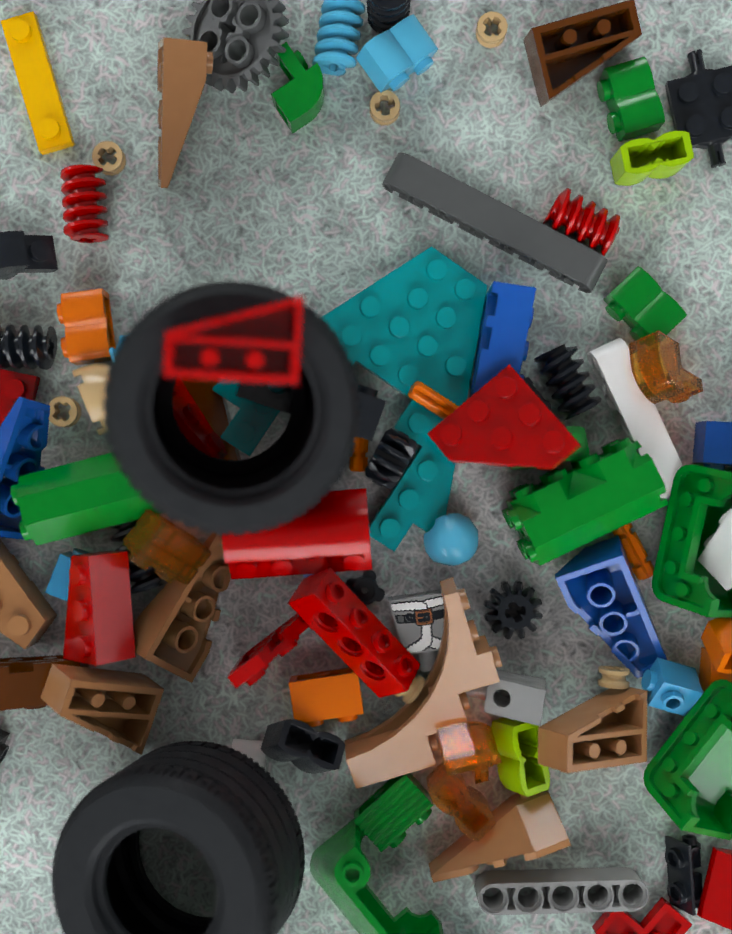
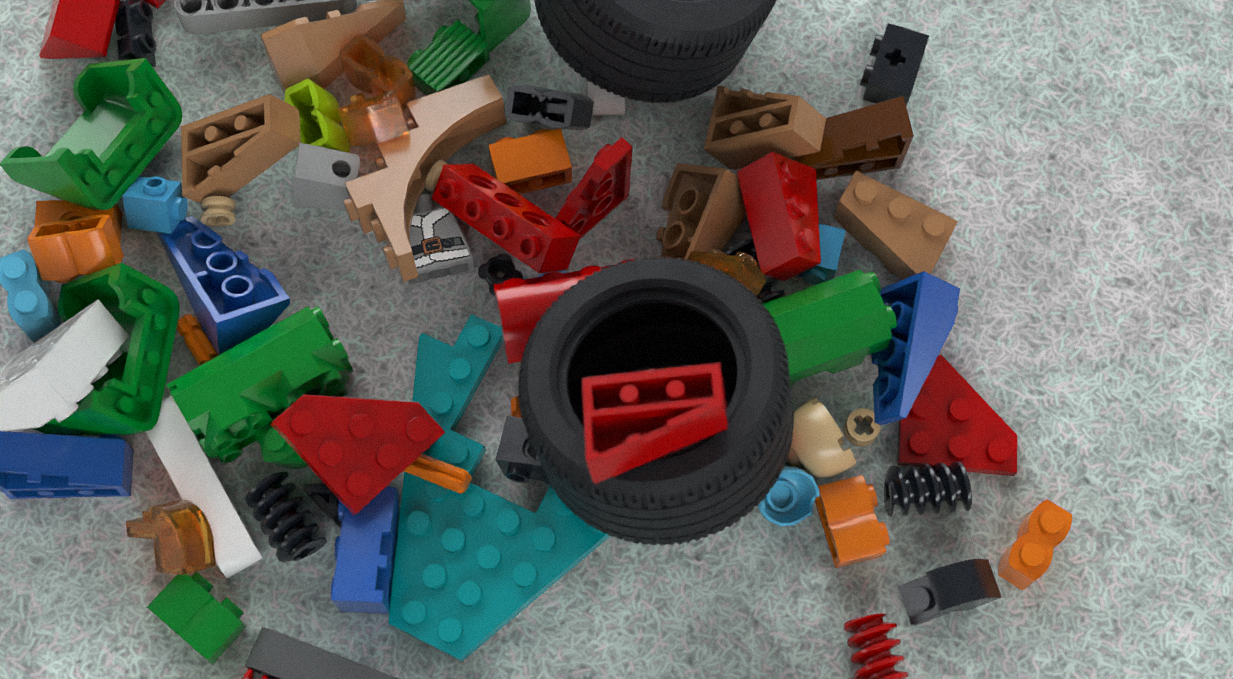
camera: 165 degrees right, 20 degrees down
(390, 458) = (484, 408): black gear -> none
(451, 540) = (407, 333): medium azure hair -> none
(505, 620) = (328, 281): black gear -> none

